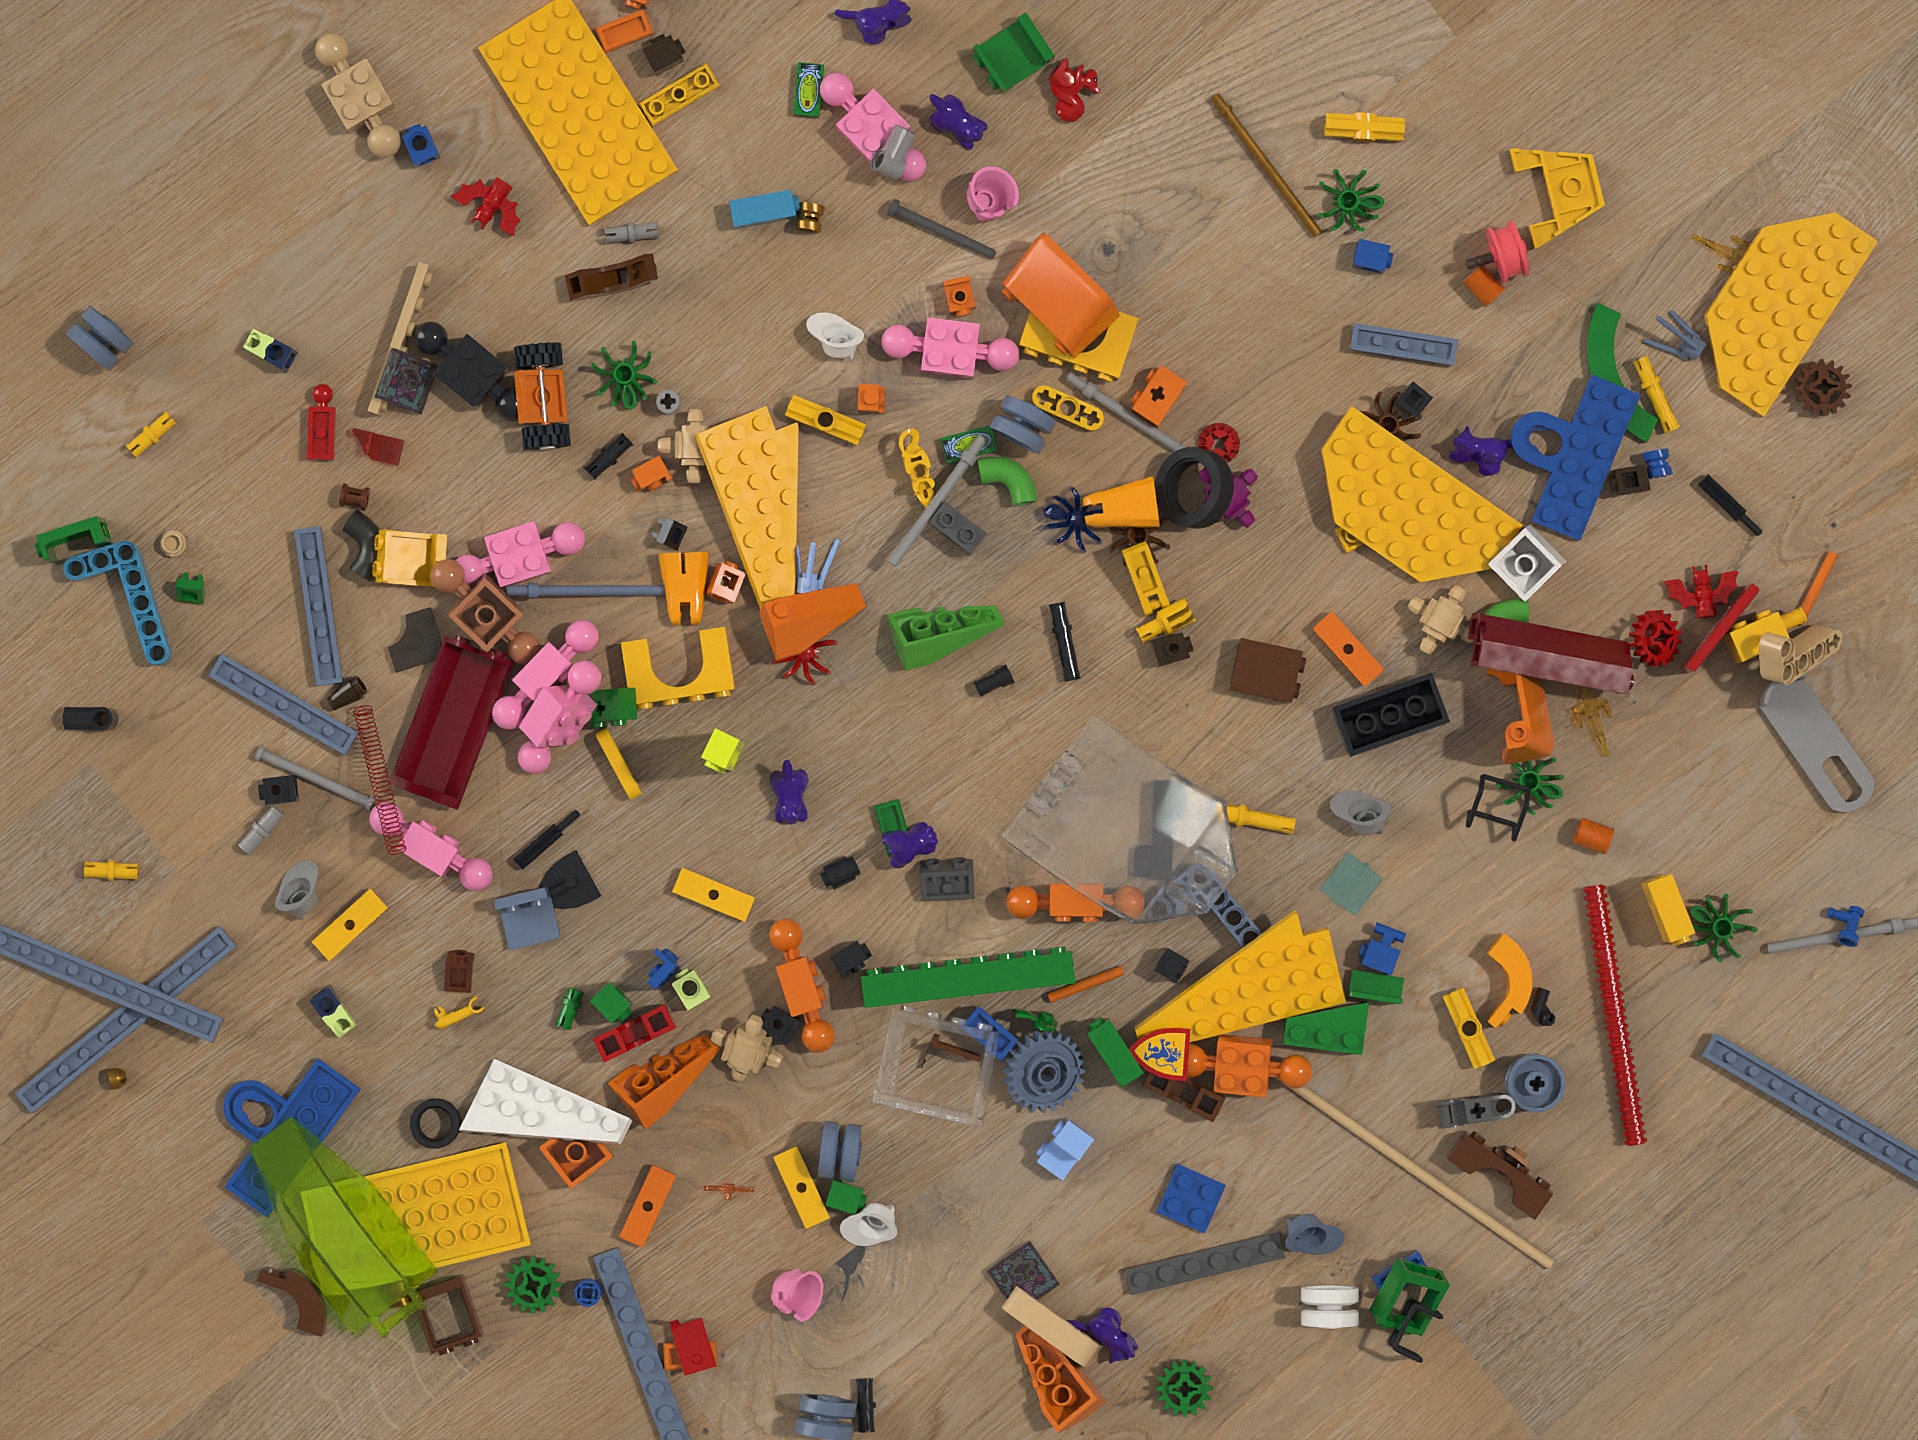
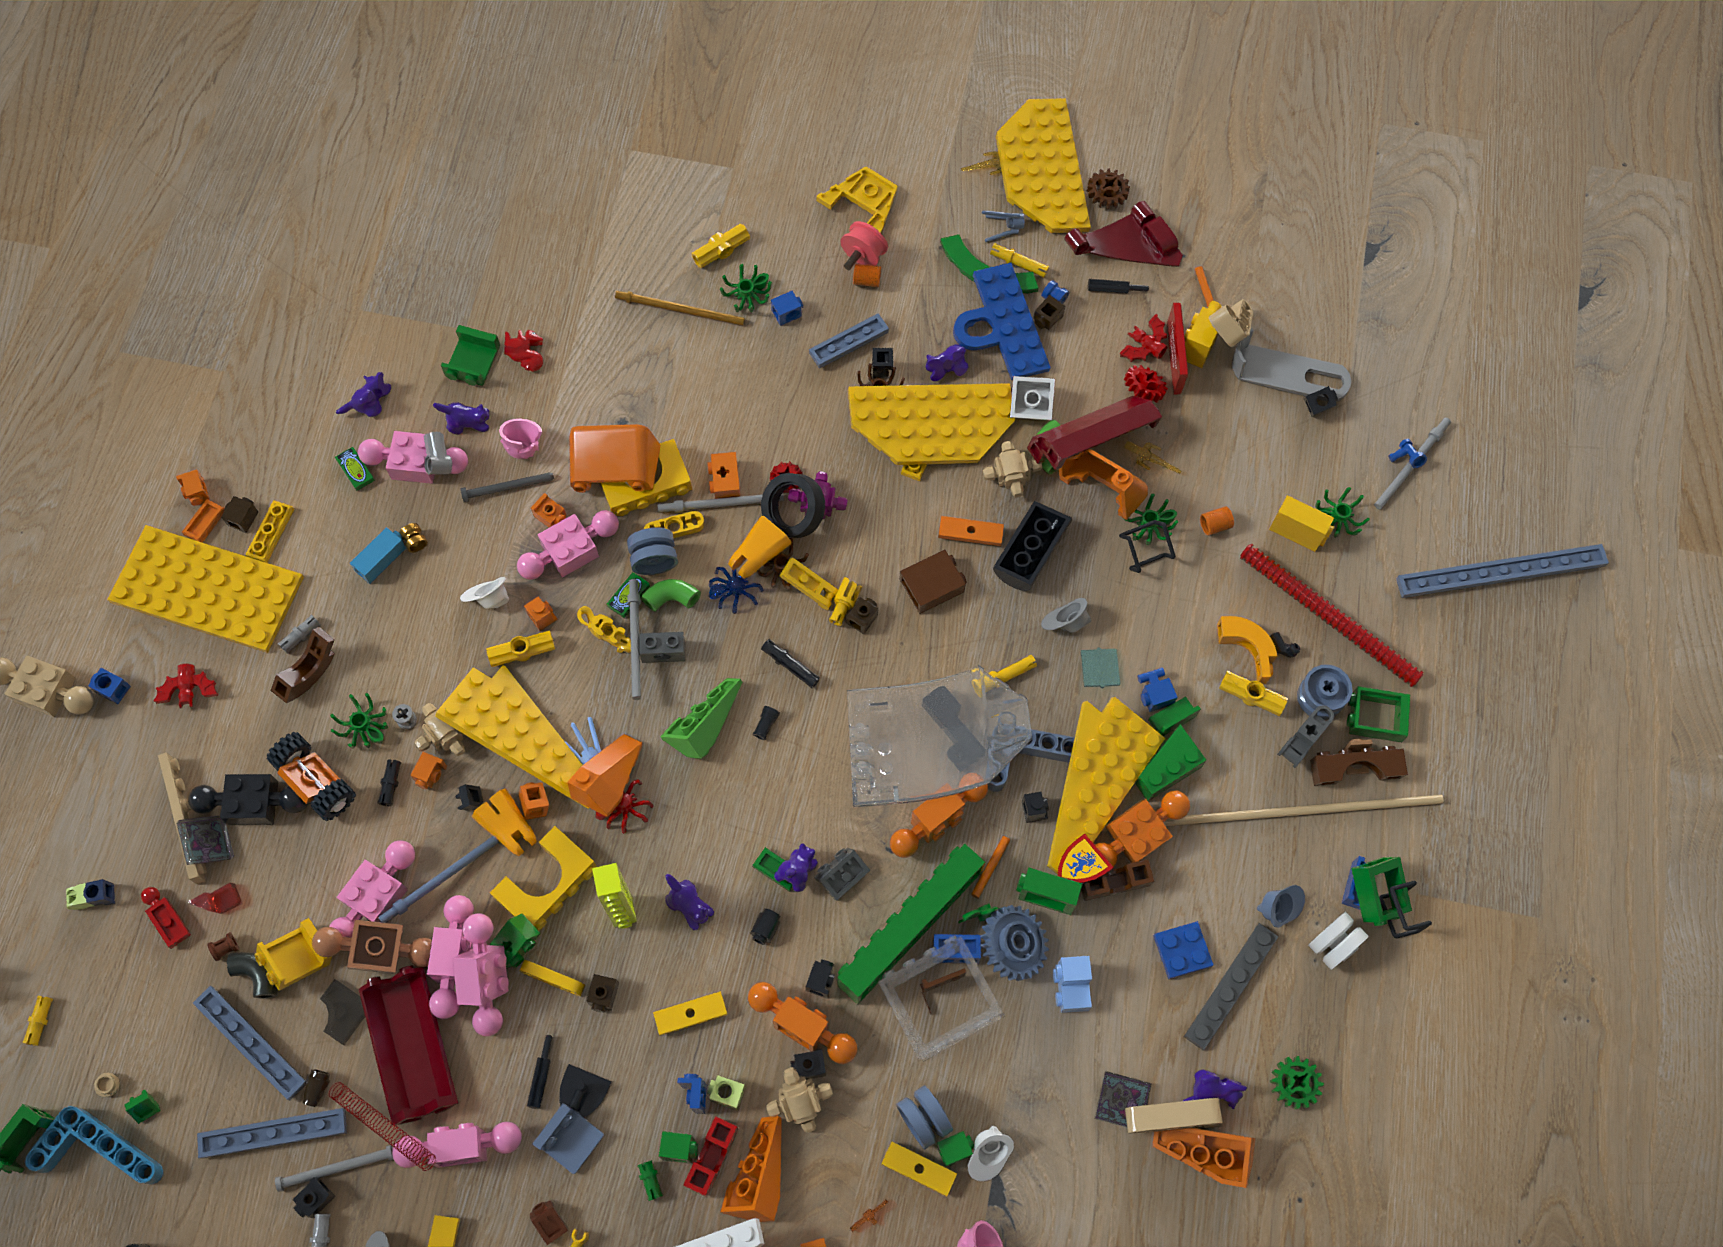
camera: 40 degrees left, 20 degrees down
(651, 814) = (602, 993): none -> dark brown brick
(1586, 1162) = (1401, 715): none -> green window
(1795, 461) = (1134, 238): none -> dark red panel
(1800, 800) = (1311, 401): none -> black brick

